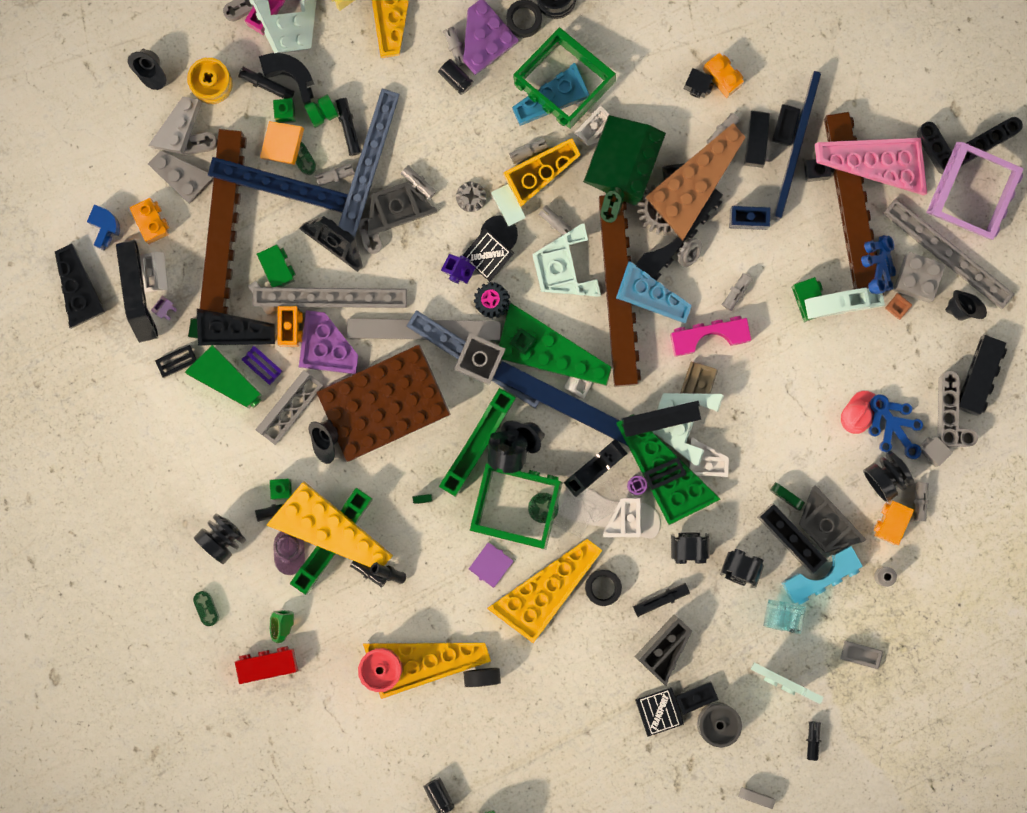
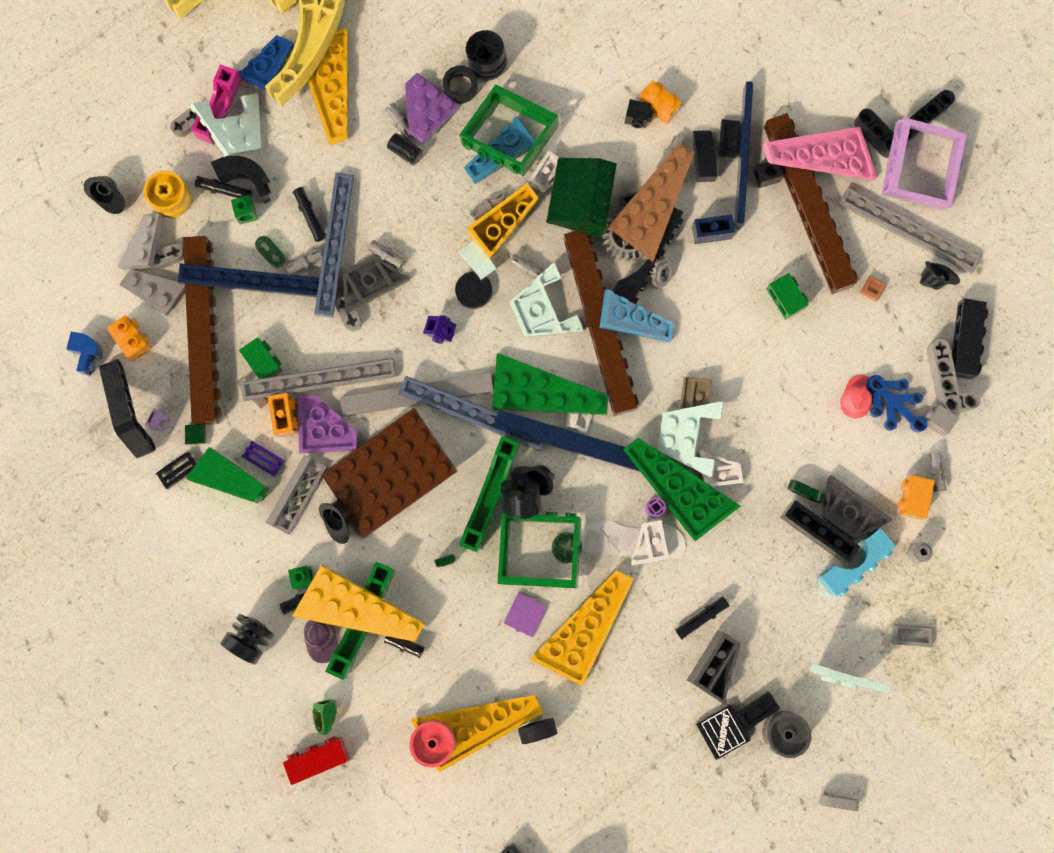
camera: 10 degrees left, 5 degrees down
(79, 294) = (70, 421): black wing -> none
(154, 272) = (142, 387): white slope -> none
(202, 611) = (250, 710): clear green beam -> none
(226, 329) = (223, 429): black wing -> none
(282, 142) = (247, 240): light orange tile -> none
(322, 110) = (280, 203): green wheel -> none
(334, 240) = (314, 323): black wing -> none
(388, 573) = (423, 642): black pin -> none
(476, 203) = (447, 263): light grey gear -> none
(479, 359) = (476, 411): light grey brick -> none
(486, 297) = (472, 351): black wheel -> none
(488, 254) = (467, 310): black tile -> none
(523, 341) = (516, 386): dark green tile -> none
(595, 468) = (611, 497): black arch -> none
(608, 203) = (574, 237): dark green beam -> none
(617, 591) = (656, 616): black tyre -> none
(661, 418) = (667, 436): black fence -> none
(670, 479) = (683, 498): black tile -> none
(690, 547) = (720, 559): black brick -> none
(734, 332) = (720, 341): dark pink arch -> none
(737, 292) = (715, 302): light grey pin -> none
(742, 568) = (777, 571): black brick -> none
(784, 616) = (829, 611): clear light blue brick -> none
(813, 741) = (884, 732): black axle -> none
(843, 302) = (822, 290): light aqua slope -> none
(885, 246) = (854, 255): blue plant -> none
(892, 474) = (902, 452): black wheel -> none
(919, 277) = (888, 256): light grey brick -> none

